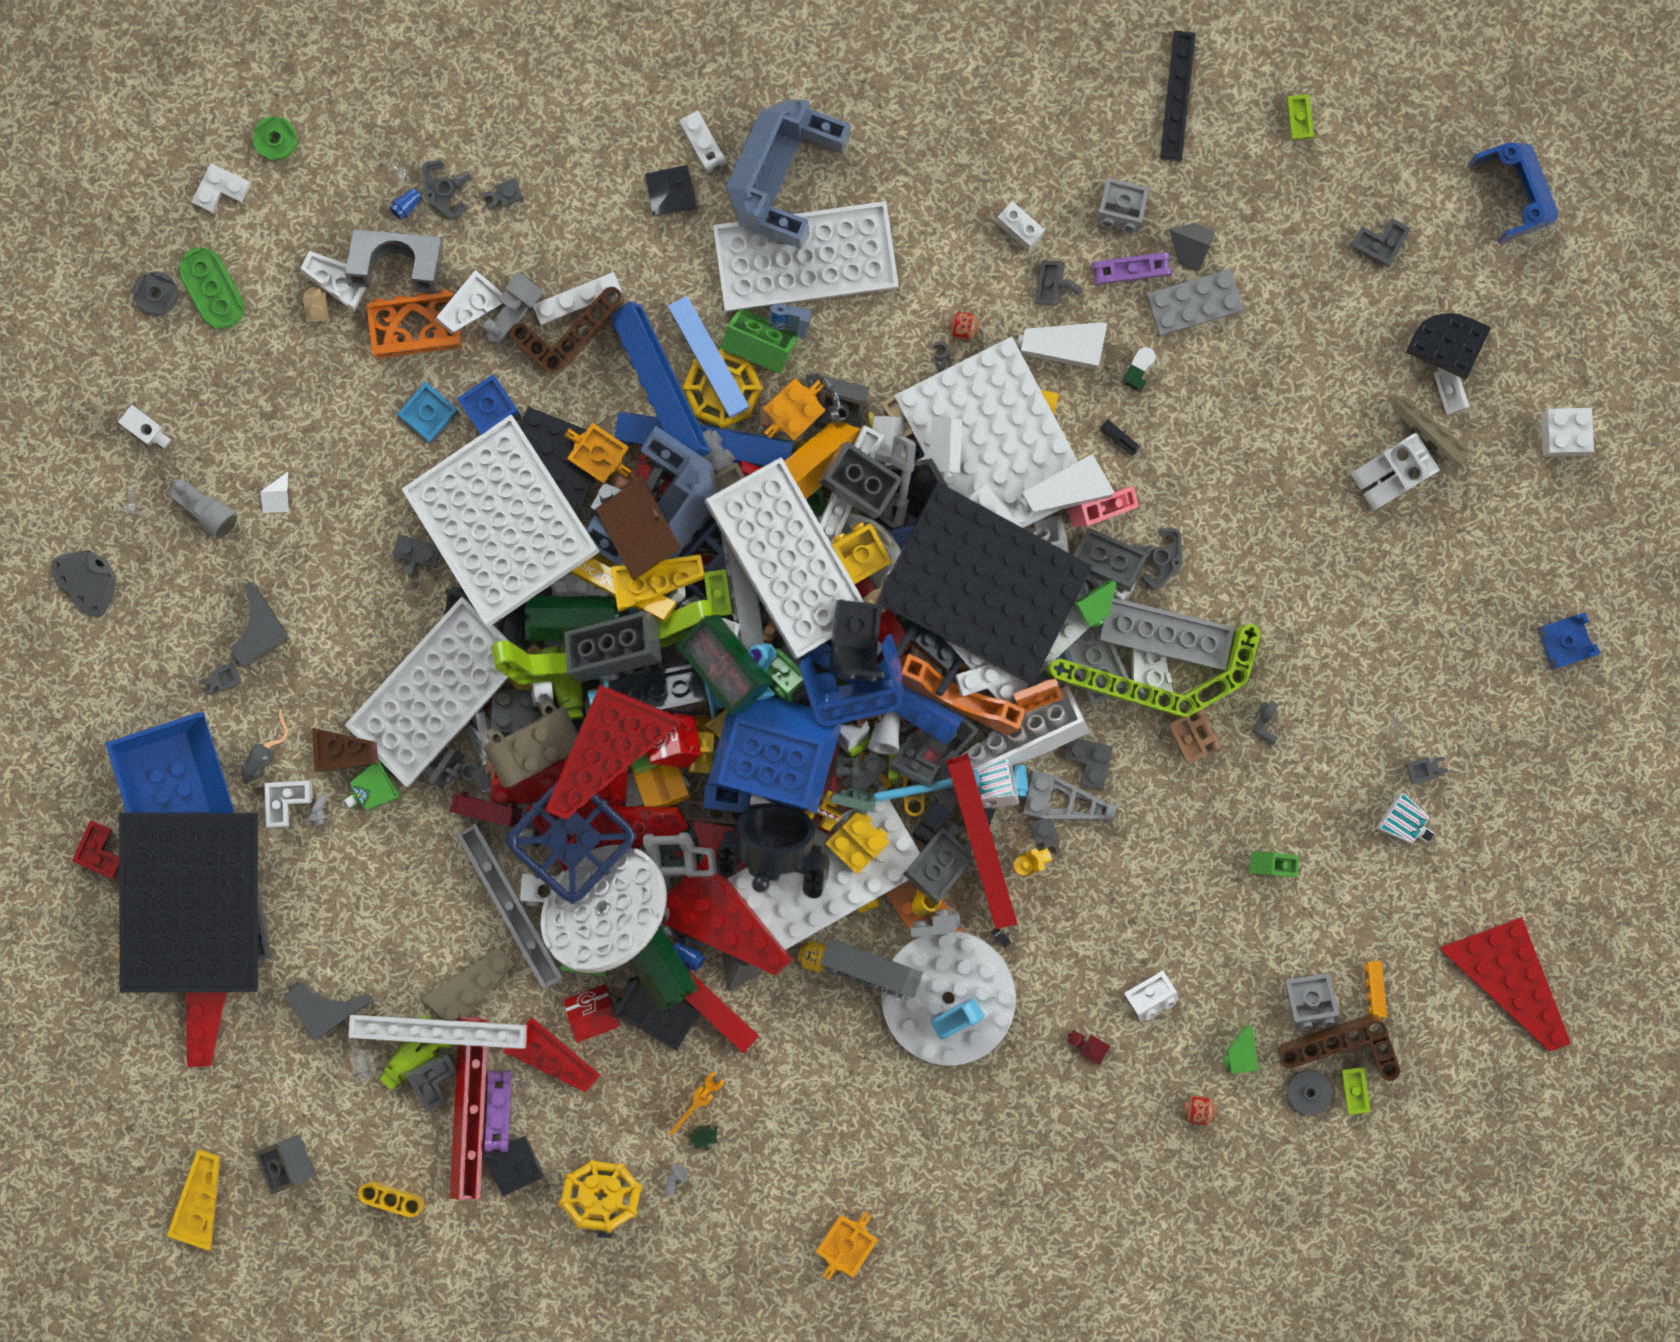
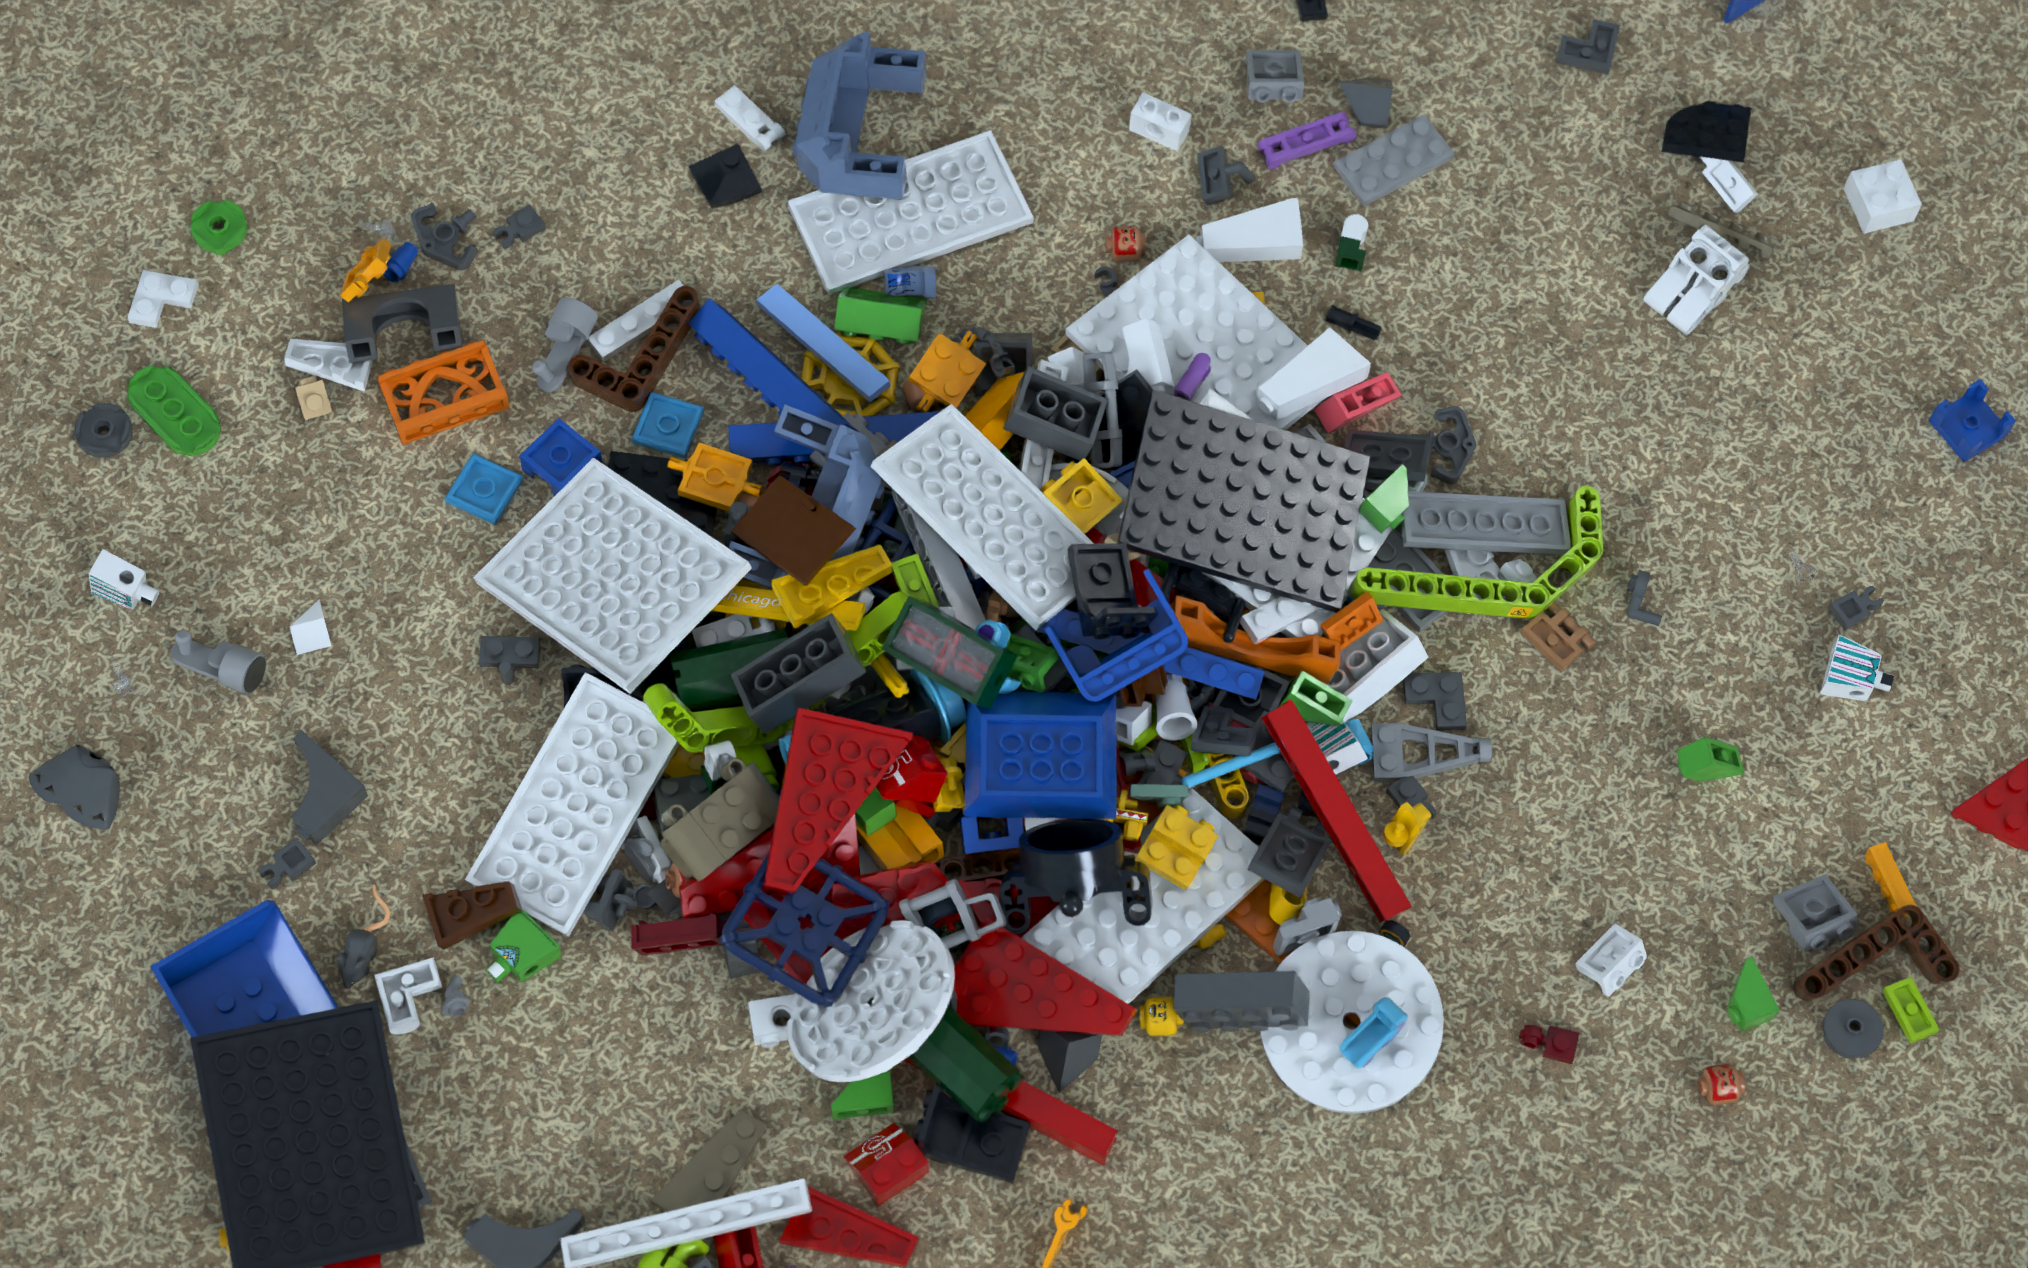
camera: 15 degrees left, 20 degrees down
(92, 853) = (158, 1124): red plate -> none
(376, 210) = (371, 265): none -> light orange plate
(469, 303) = (509, 348): white wing -> none
(510, 906) = (743, 1052): light grey tile -> none
(577, 393) = (668, 425): none -> dark azure tile
(682, 664) = (890, 676): none -> yellow axle
(977, 466) = (1193, 377): none -> medium lavender bar
(993, 751) = (1317, 700): none -> bright green slope
(1180, 679) = (1518, 571): none -> white plate

